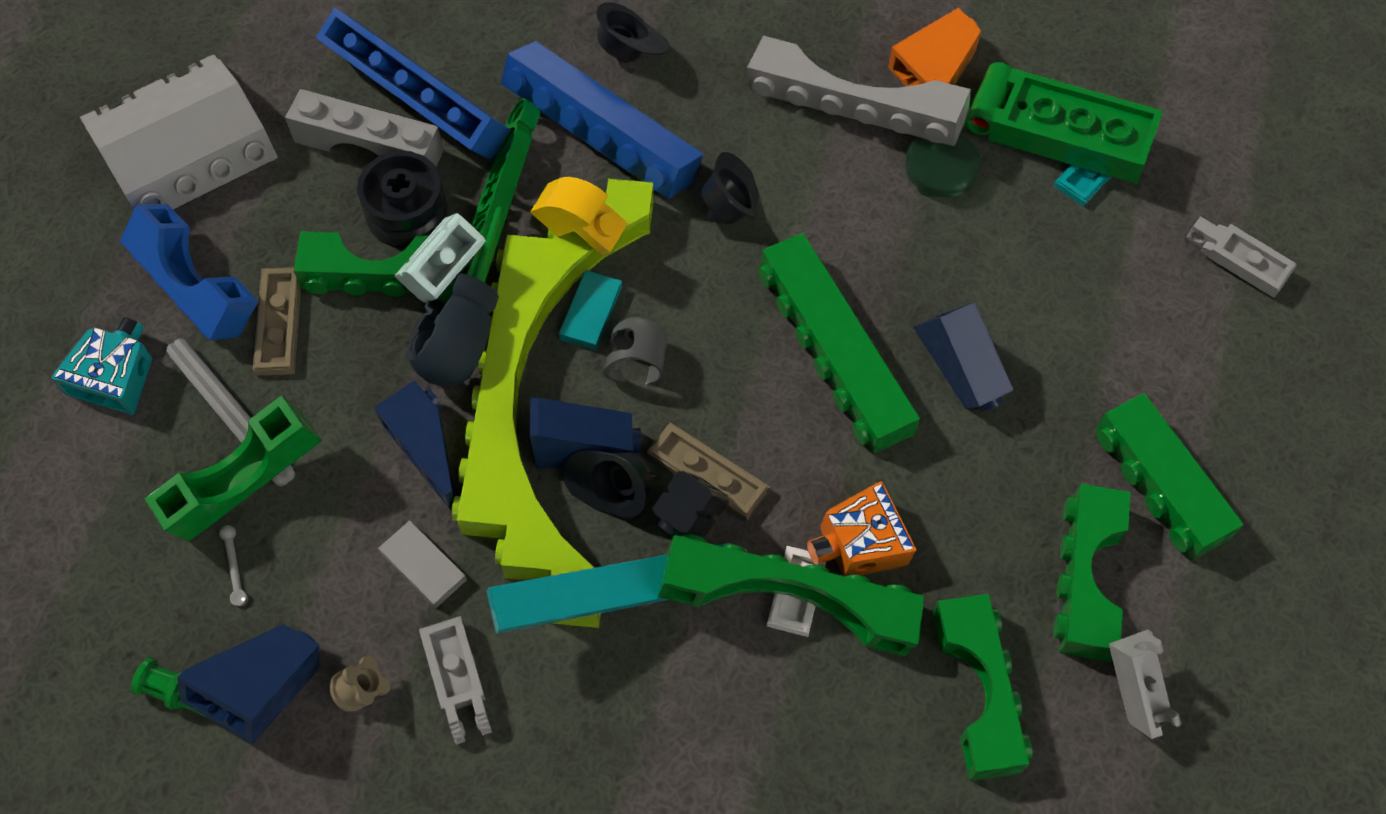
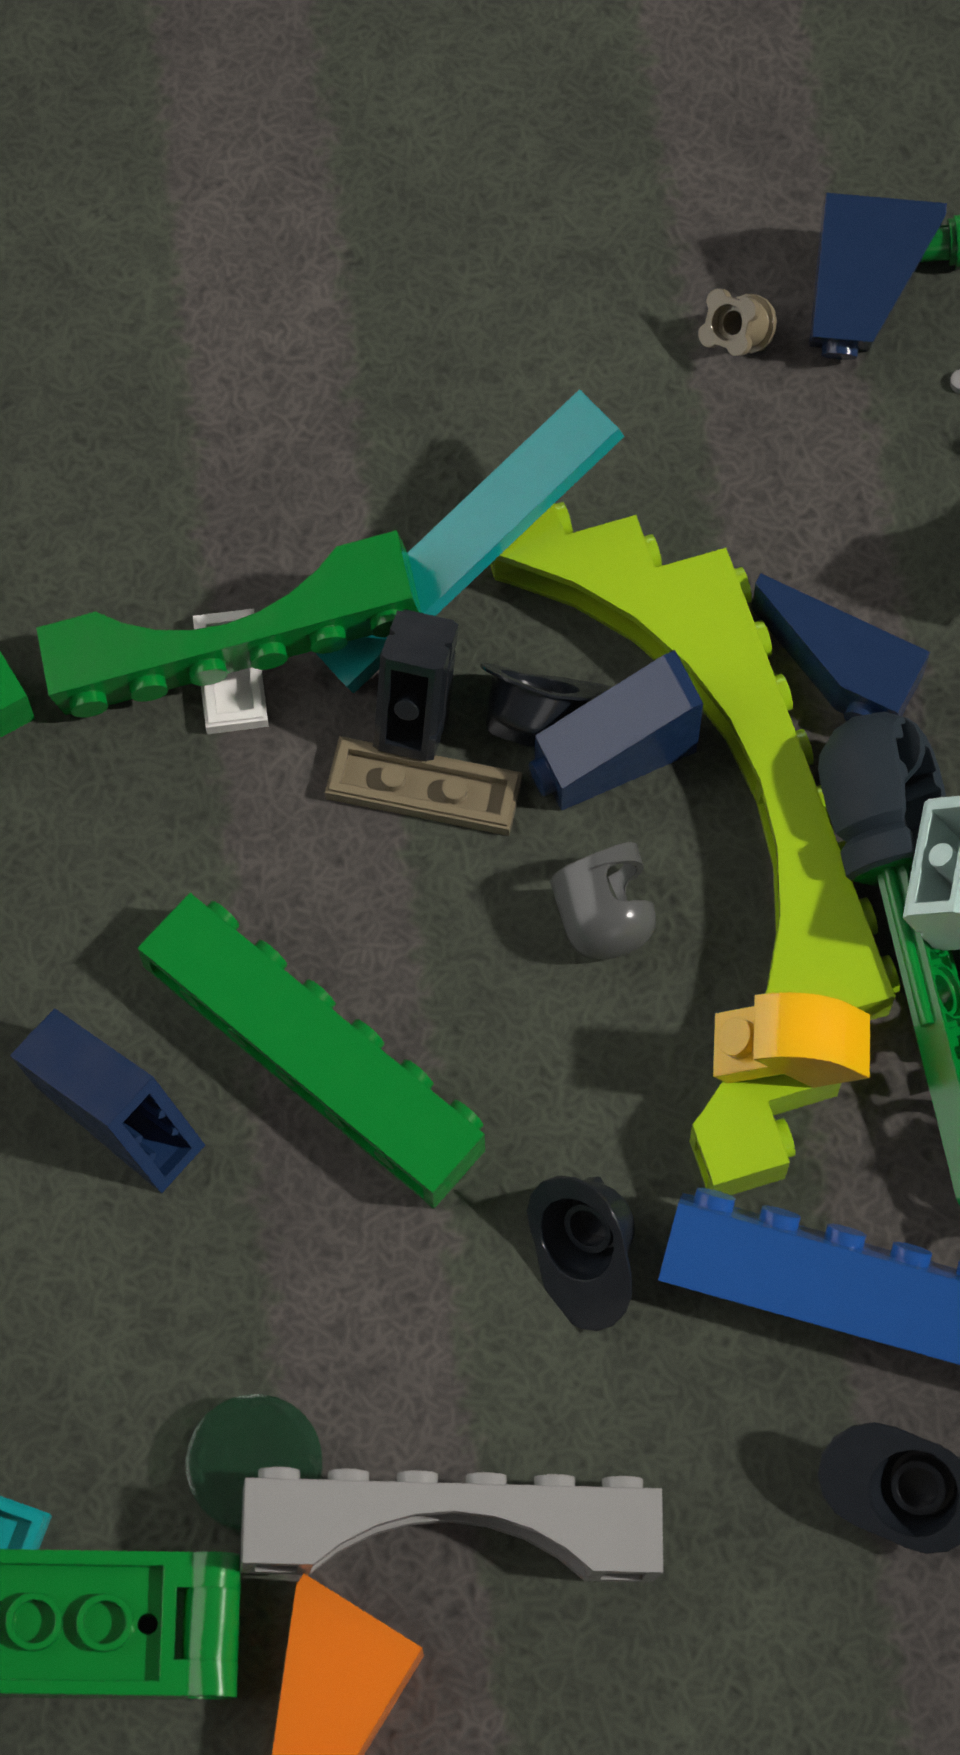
camera: 160 degrees right, 5 degrees up
(422, 564) = (750, 509): light grey tile -> none
(454, 674) = (628, 390): light grey hinge -> none
(590, 310) = (711, 958): teal tile -> none
(863, 535) = (165, 763): torso -> none

